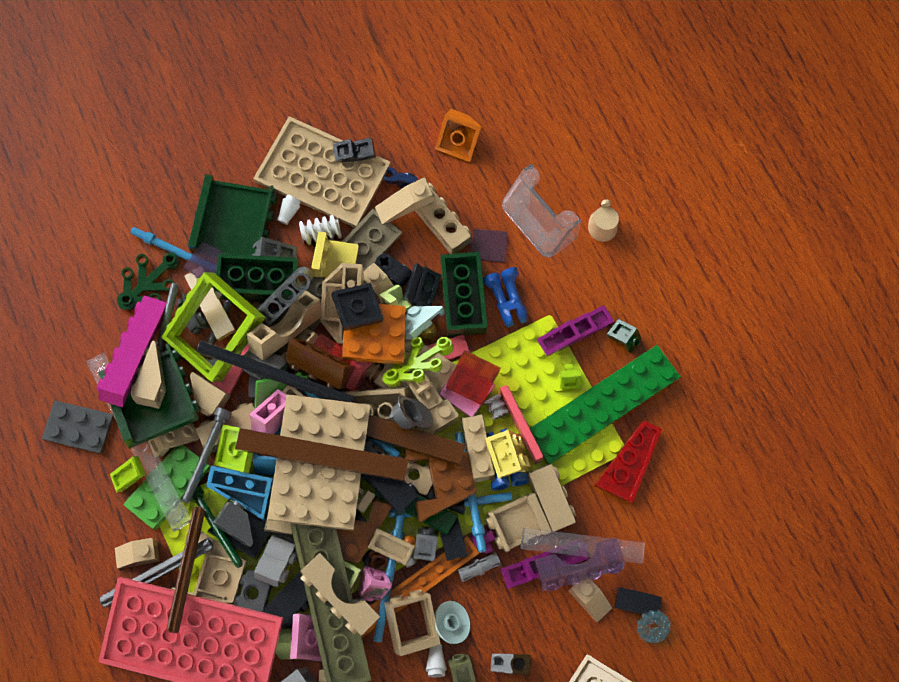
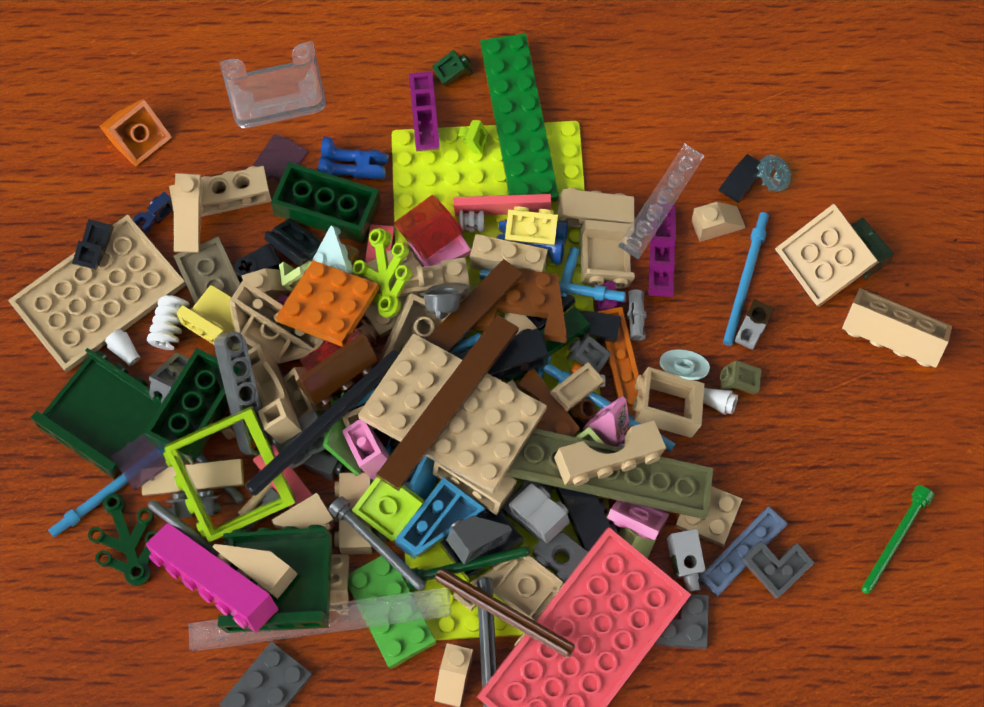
camera: 60 degrees left, 5 degrees down
(127, 474) = (355, 647): lime tile -> none
(357, 306) = (292, 301): black plate -> none
(556, 573) = (680, 234): clear purple arch -> none
(592, 636) = (757, 236): none -> dark azure bar
(603, 222) = (320, 29): tan hat -> none
(628, 467) = (595, 123): red wing -> none

